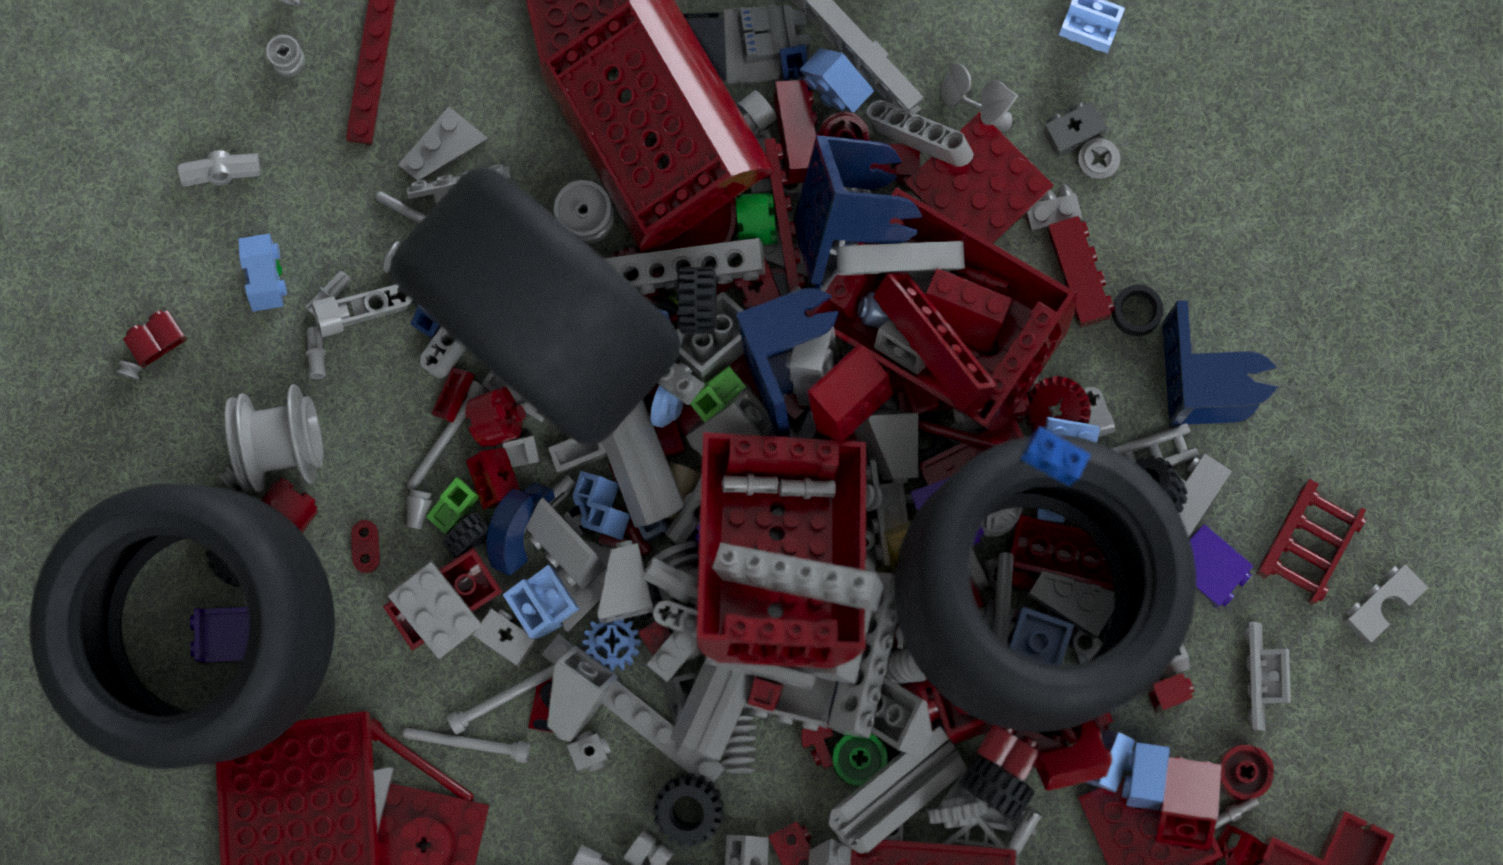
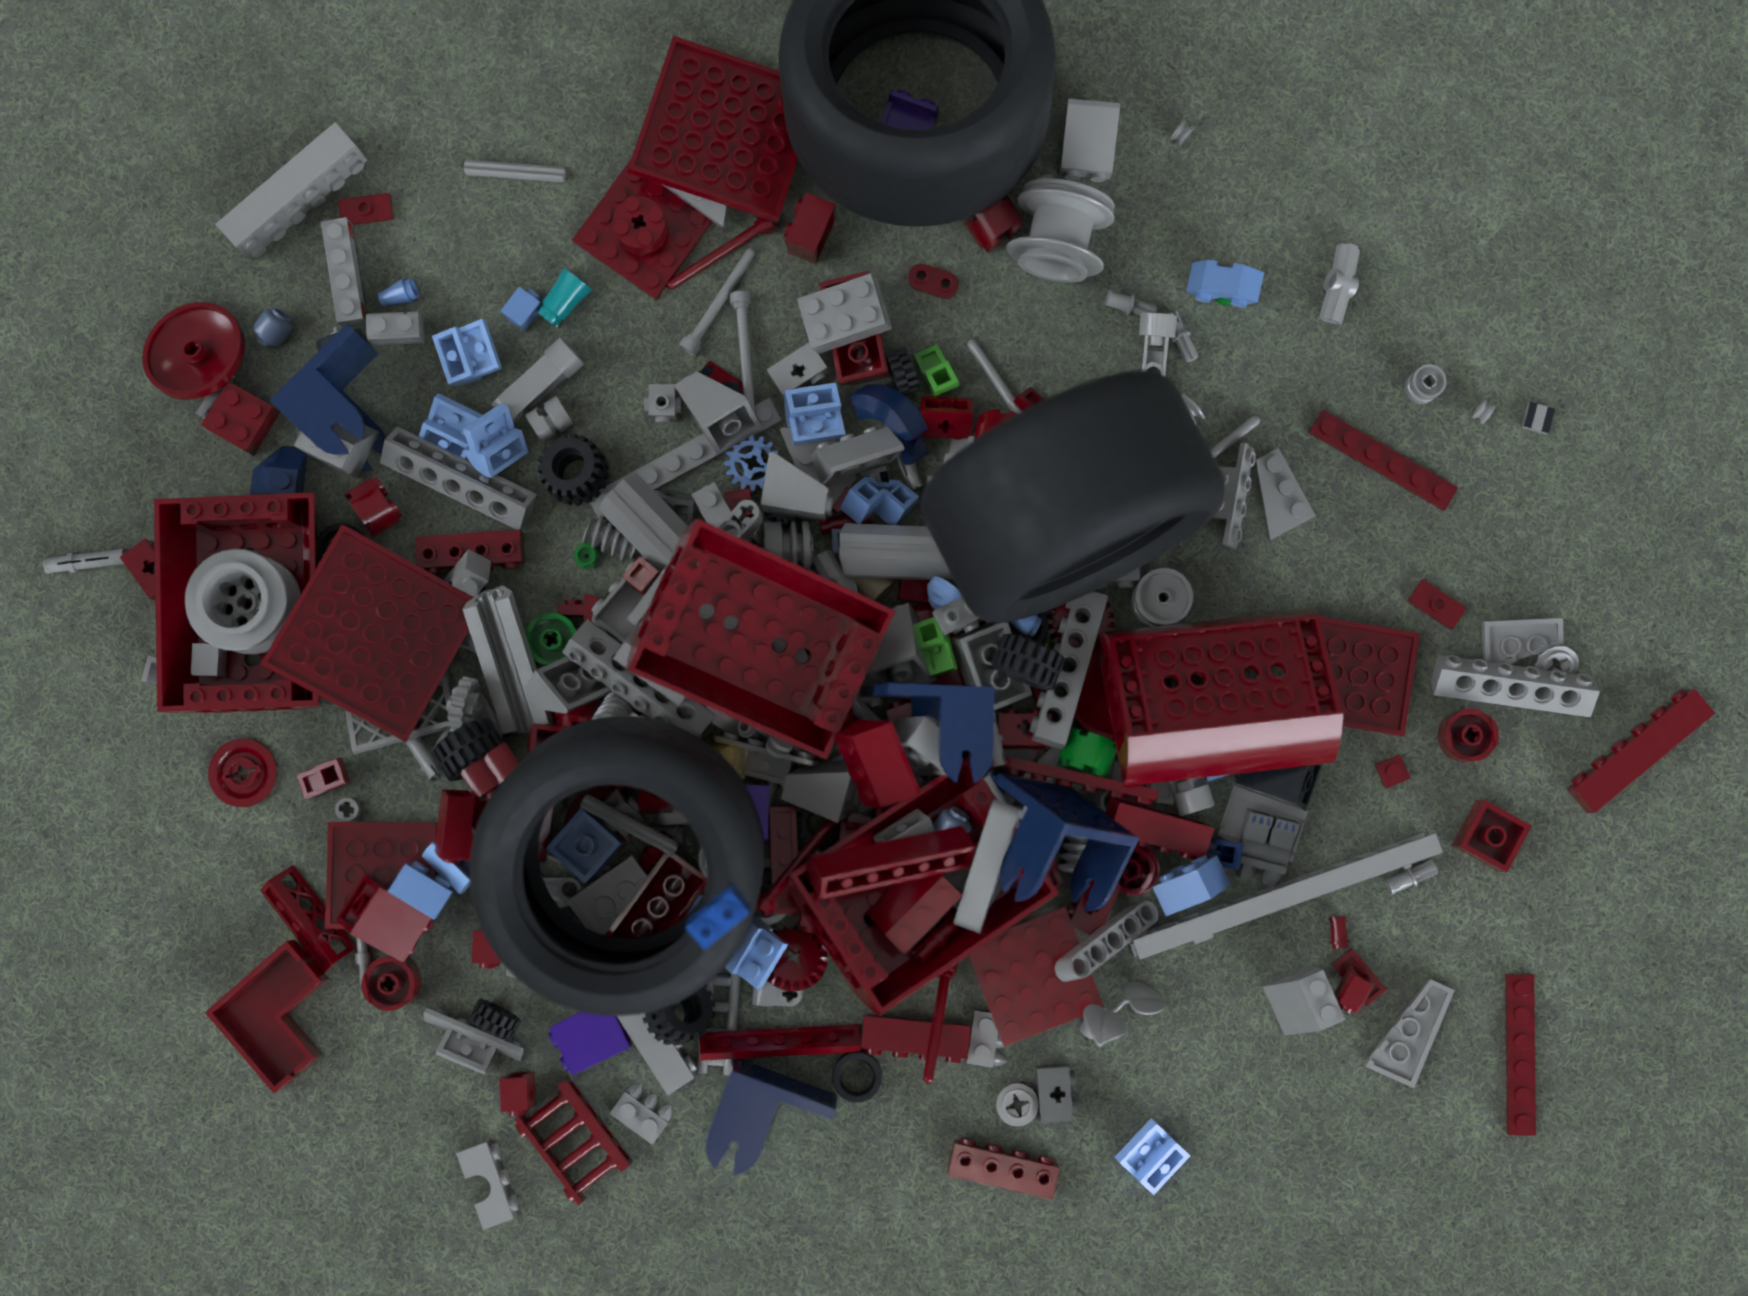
camera: 110 degrees right, 5 degrees up
(154, 338) = (1203, 166): dark red brick -> none
(172, 452) = (1089, 139): none -> light grey slope
(362, 680) = (810, 228): none -> dark red brick
(417, 507) = (950, 341): light grey cone -> none
(677, 582) = (772, 535): light grey piece -> none
(749, 484) = (833, 637): light grey pin -> none
(772, 766) = (584, 549): none -> green plate
(798, 576) = (721, 639): light grey brick -> none
(807, 488) = (808, 689): light grey pin -> none
(1071, 250) = (937, 1022): none -> dark red piece
(1138, 390) = (780, 1042): none -> dark red plate
(1161, 147) = (1003, 1169): none -> dark red brick
(1234, 660) = (494, 1019): none -> black tyre
(1260, 491) = (640, 1114): none -> light grey plate
(1291, 609) = (517, 1092): none -> dark red brick

